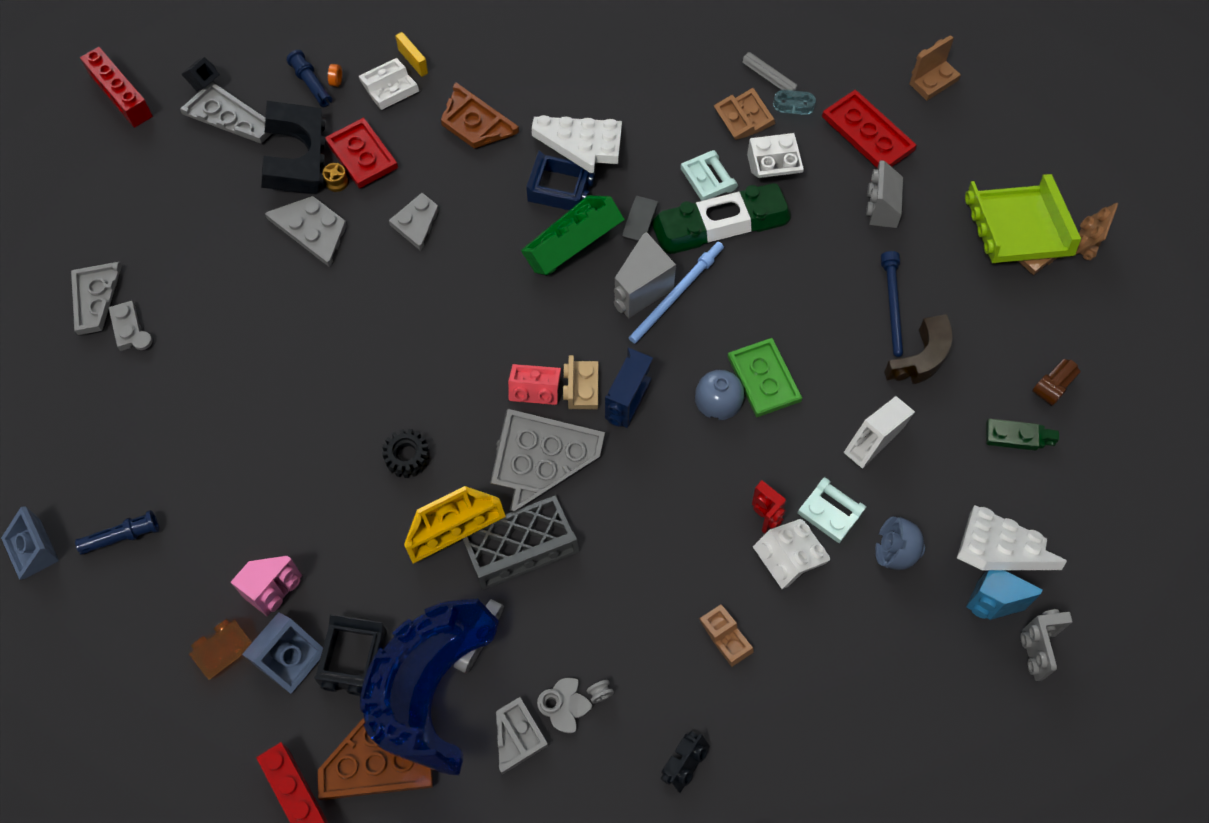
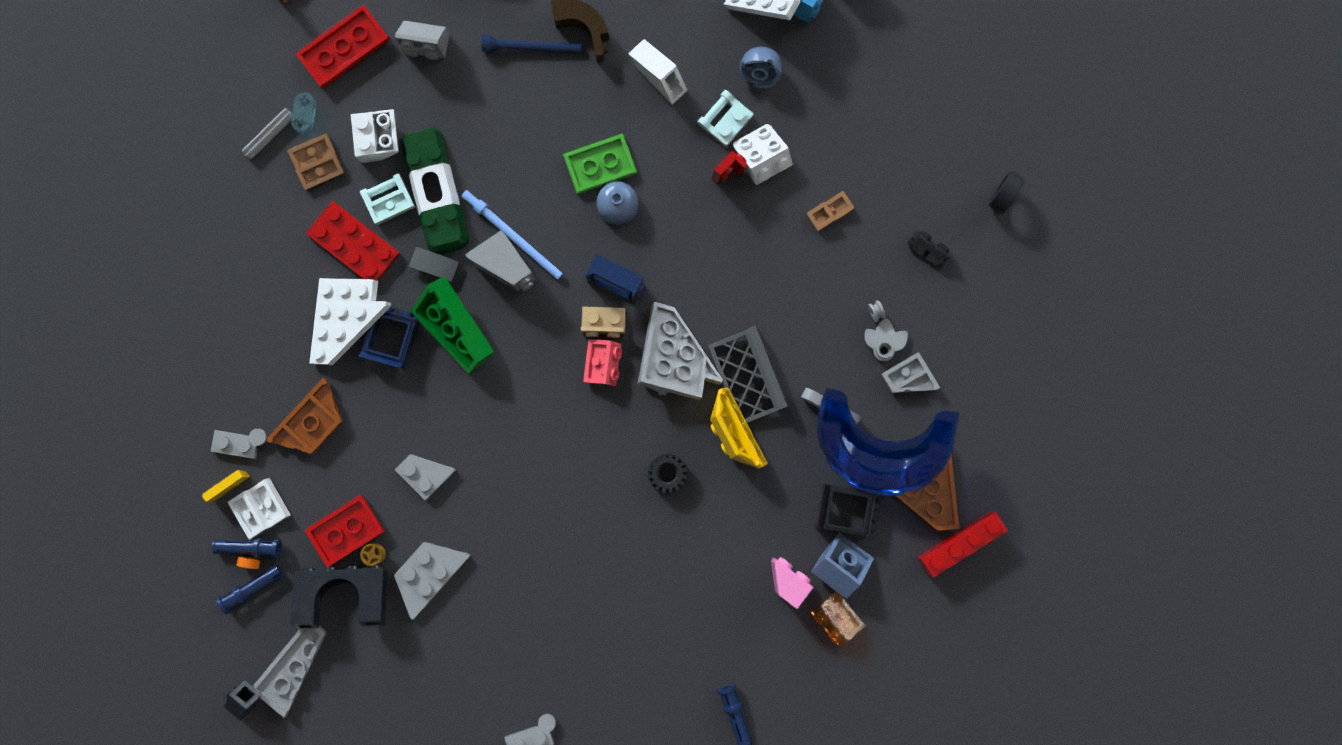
camera: 90 degrees left, 20 degrees up
(349, 81) = (256, 548): none -> dark blue pin
(453, 64) = (238, 444): none -> light grey hinge
(659, 150) = (353, 243): none -> red plate

